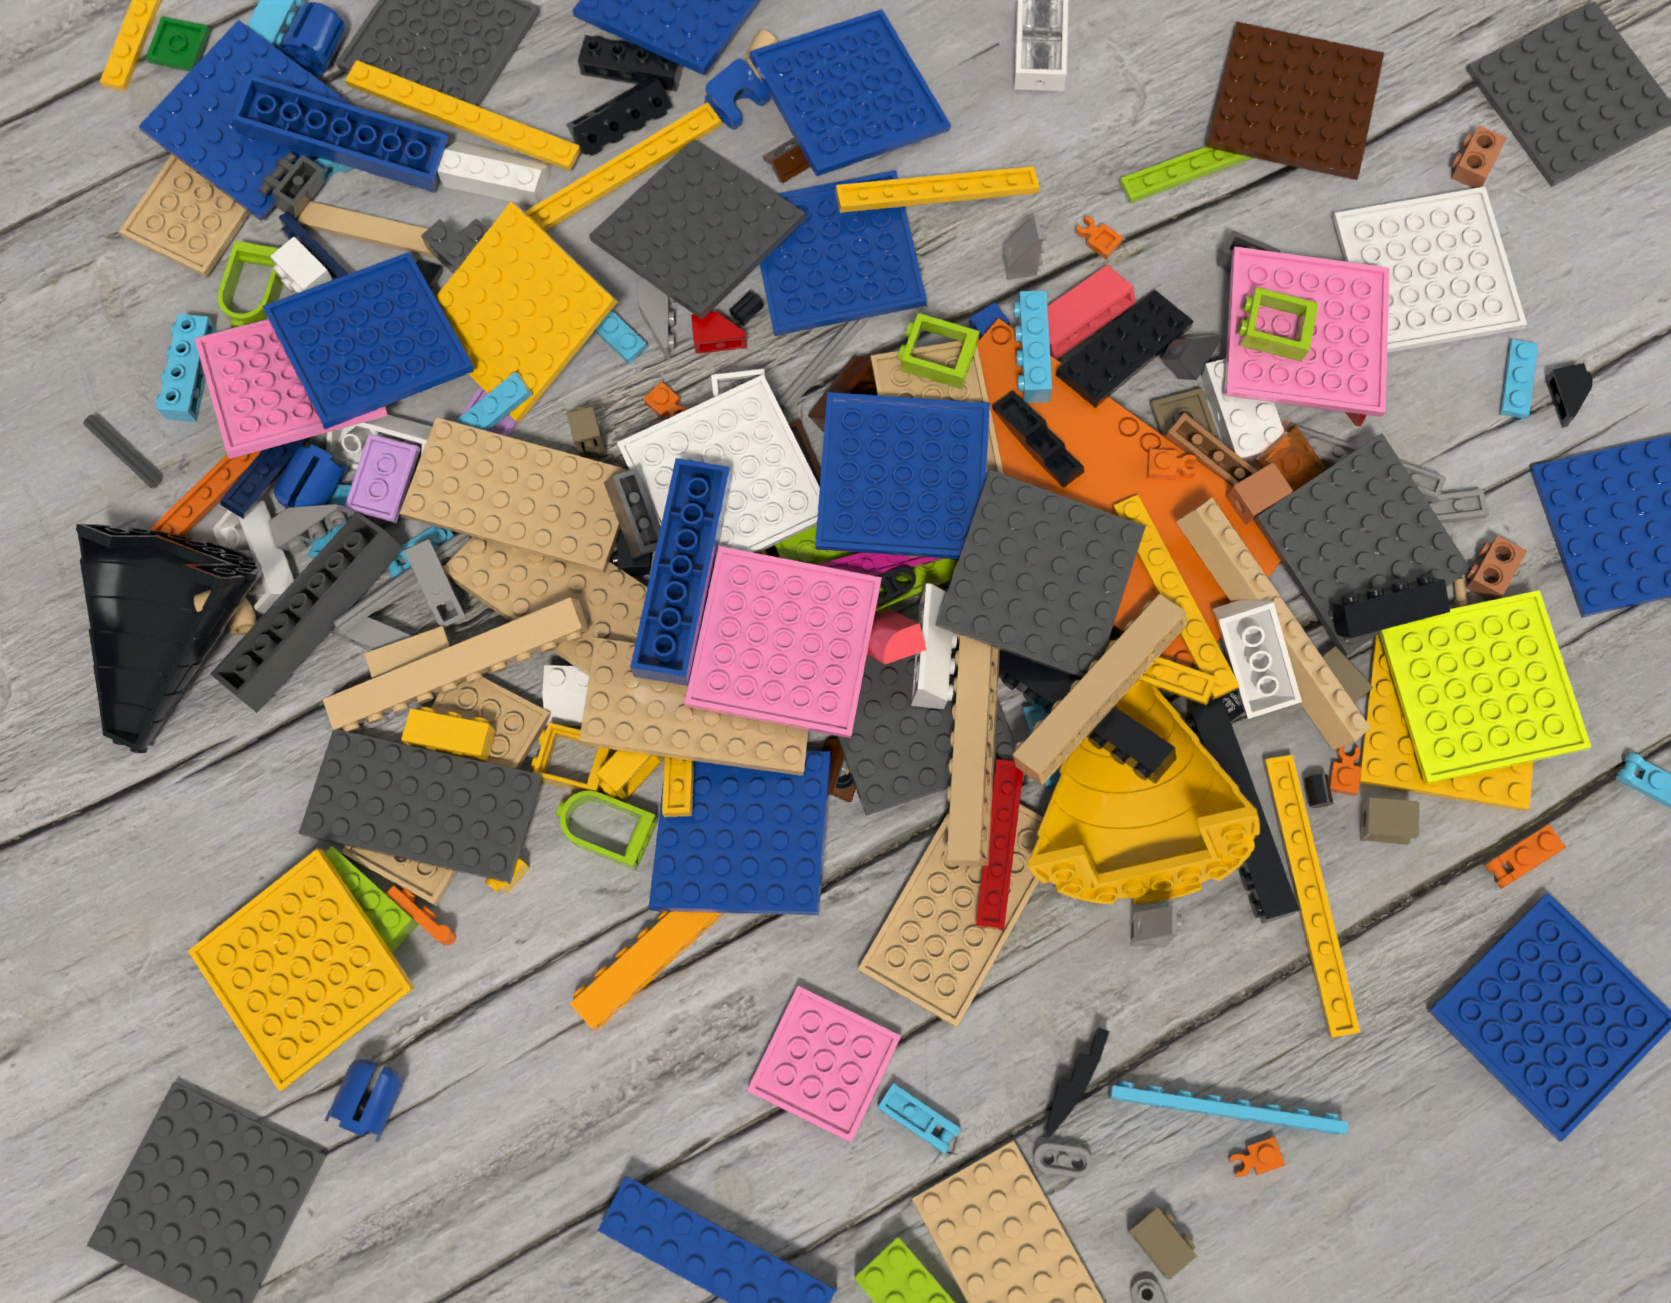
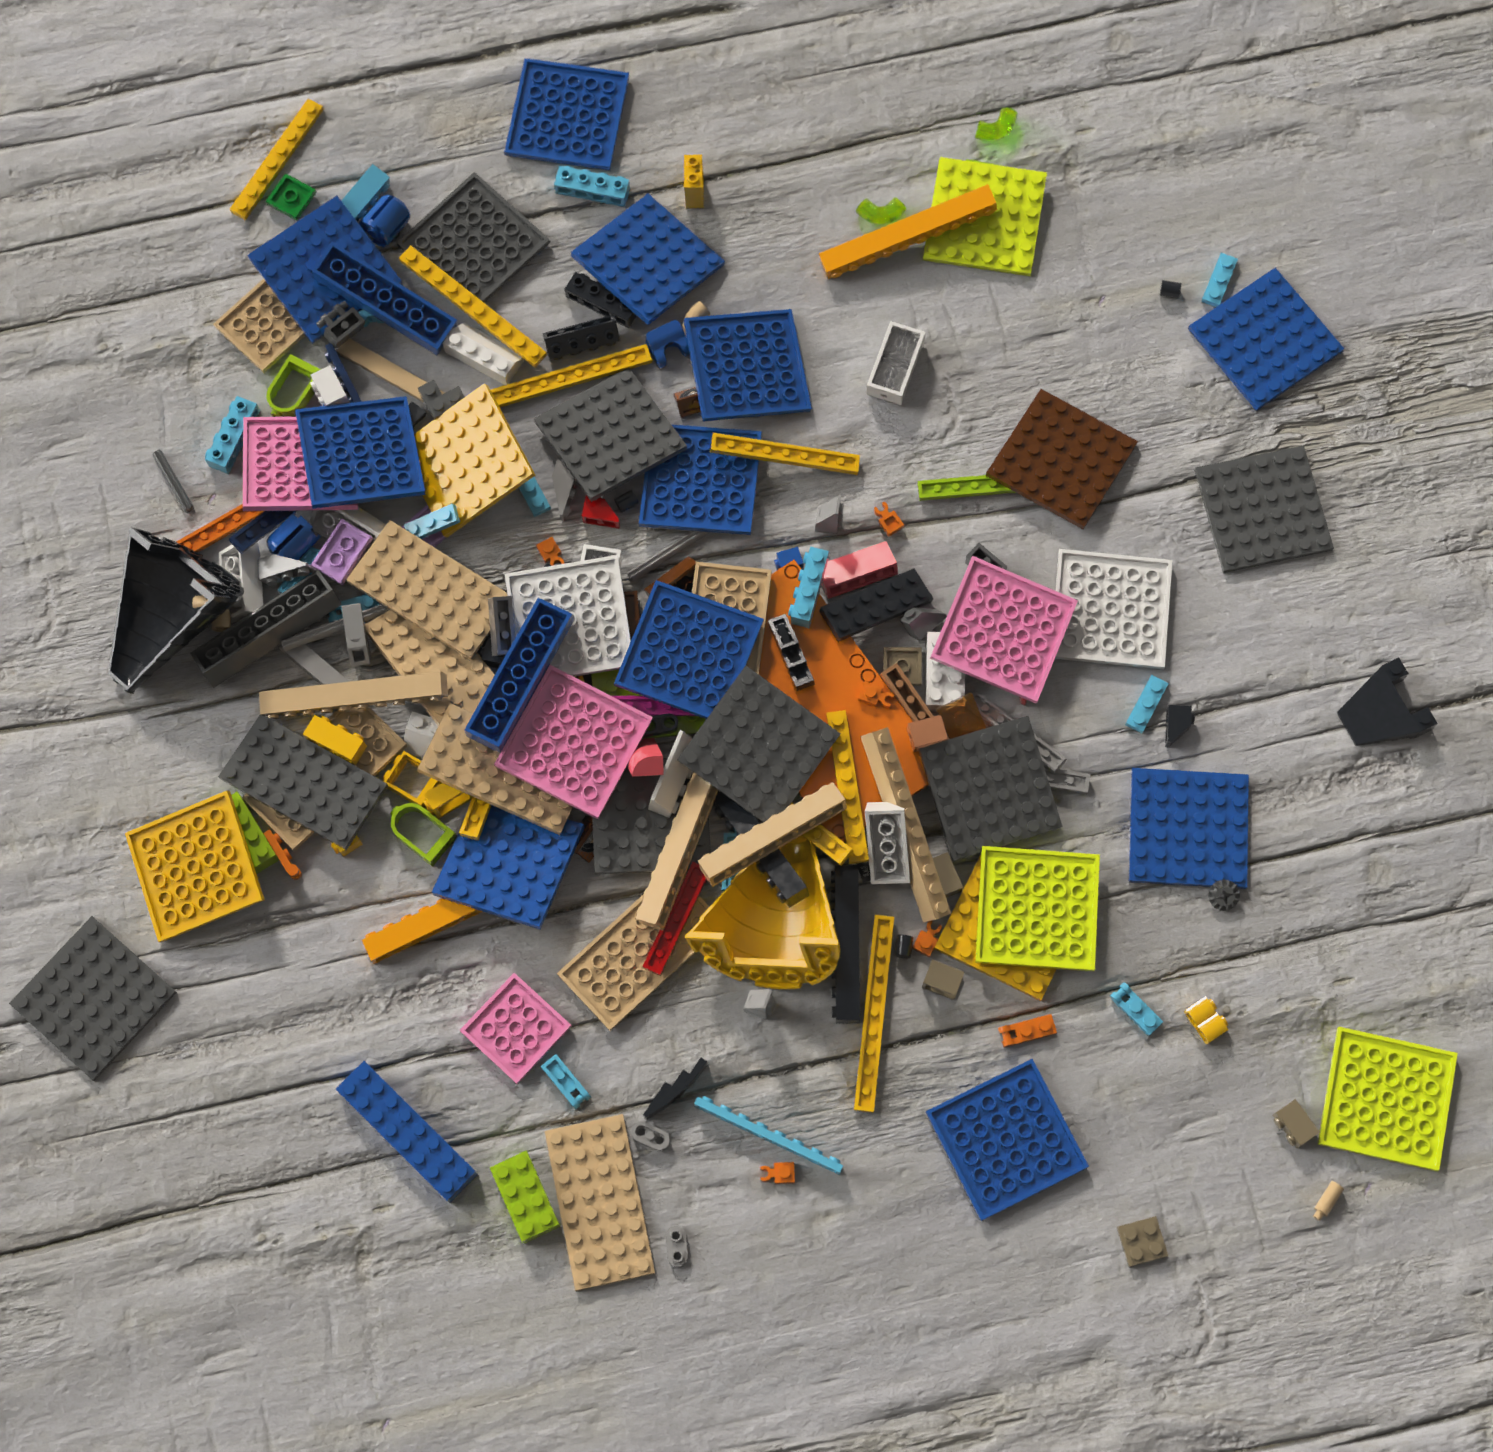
camera: 15 degrees right, 0 degrees up
(352, 1092) = (219, 968): blue cylinder -> none
(406, 651) = (323, 675): tan tile -> none
(586, 433) = (488, 559): dark tan brick -> none
(932, 371) = (758, 582): lime window -> none
(1162, 1242) = (697, 1207): dark tan brick -> none
(1274, 344) = (973, 633): lime window -> none
(1390, 606) = (990, 836): black brick -> none
(1460, 593) = (1050, 841): tan piece -> none
(1480, 158) = (1179, 540): nougat brick -> none
(1499, 571) = (1082, 834): nougat brick -> none

